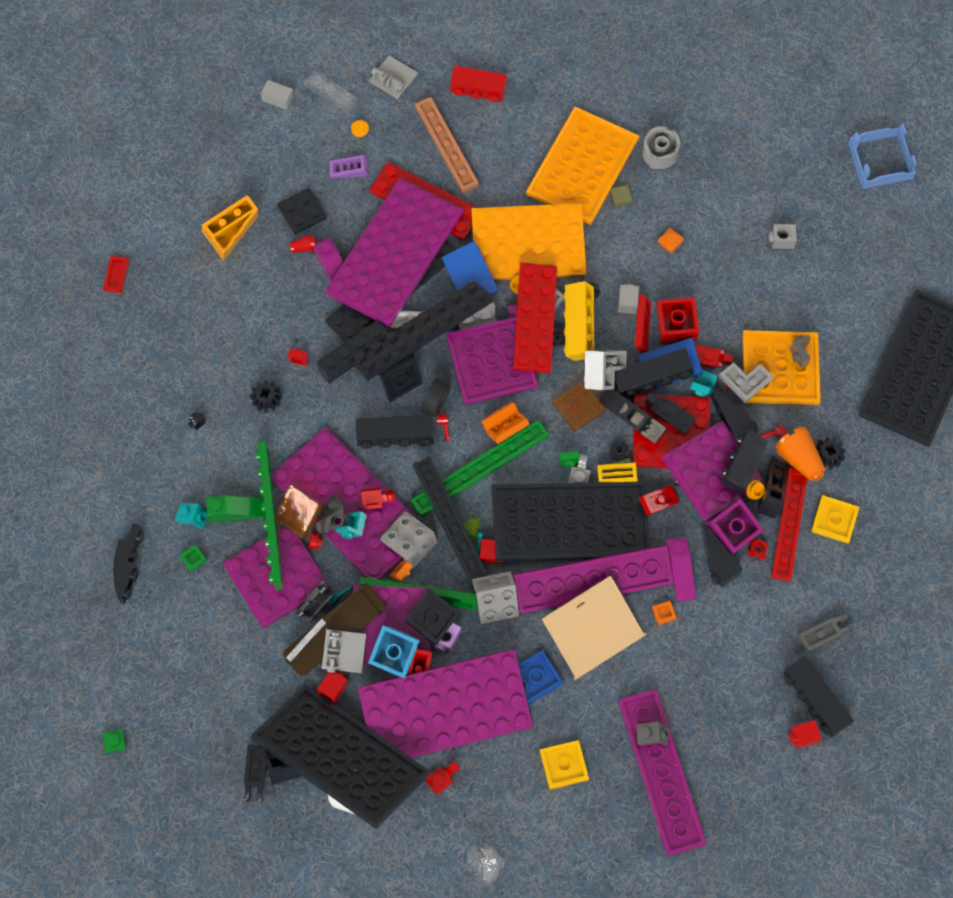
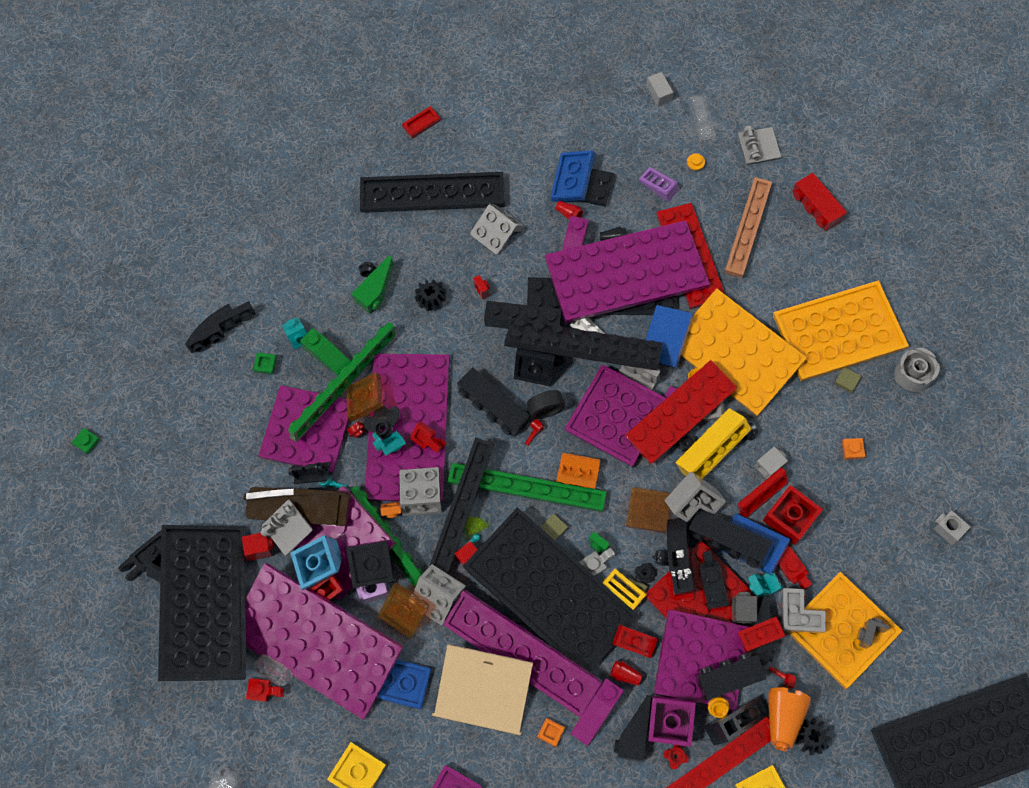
camera: 50 degrees right, 0 degrees up
(183, 320) = (431, 191): none -> black plate
(218, 432) = (372, 289): none -> green slope
(230, 225) = (529, 153): light orange wedge -> none
(263, 305) = (495, 228): none -> light grey bracket
(281, 216) = (572, 176): none -> blue tile
(354, 234) = (612, 233): none -> black cone
(436, 756) = (273, 670): none -> clear beam
(485, 628) = (403, 610): none -> clear orange plate
(526, 476) = (554, 527): none -> olive tile
(620, 429) = (661, 558): none -> black plate
(672, 528) = (625, 673): none -> red cone
(708, 411) = (744, 608): none -> dark grey brick
(736, 416) = (761, 634): none -> red plate

